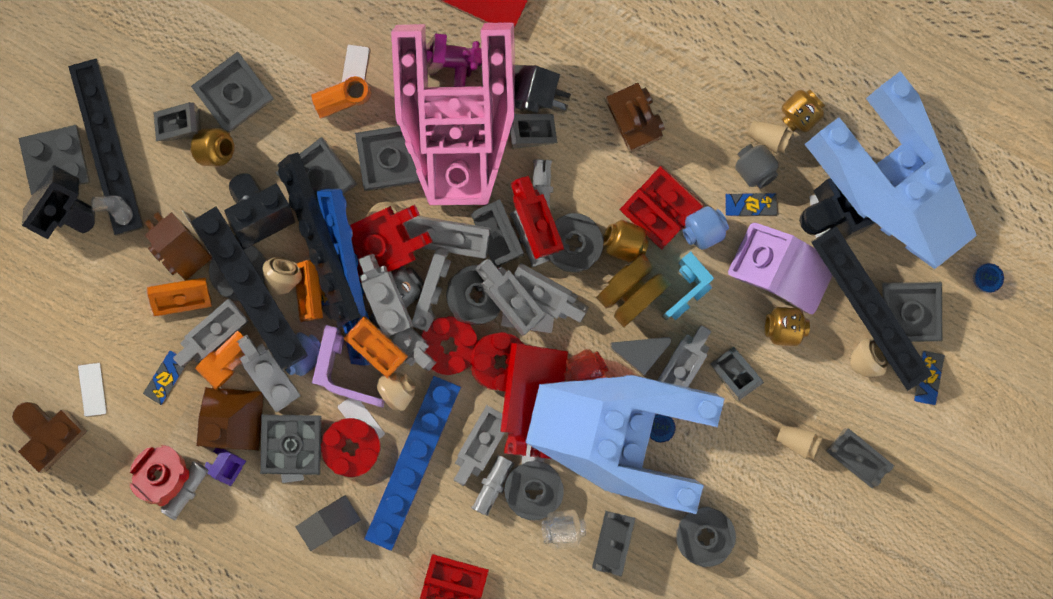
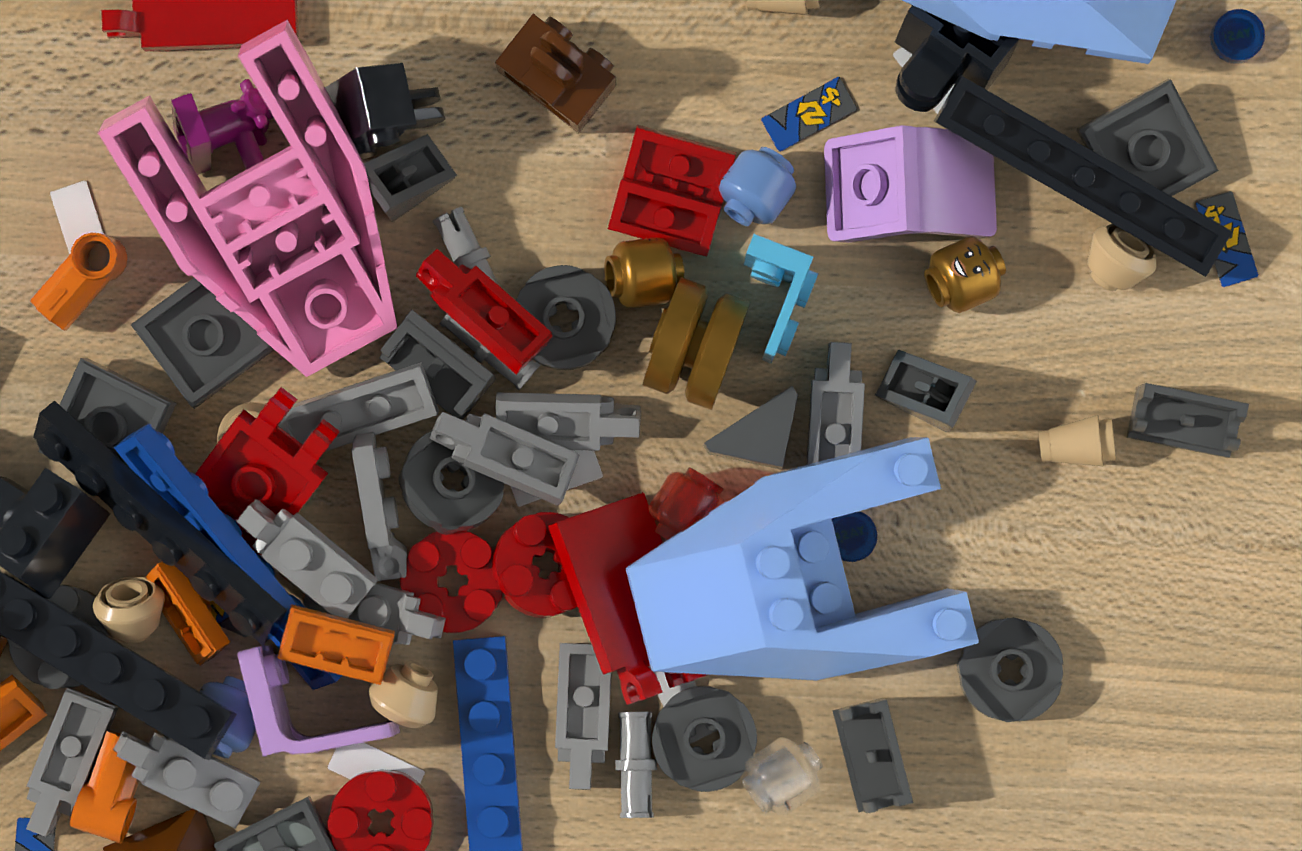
camera: 20 degrees left, 0 degrees up
(408, 284) = (337, 518): dark grey head -> none
(757, 166) = (787, 48): dark grey head -> none

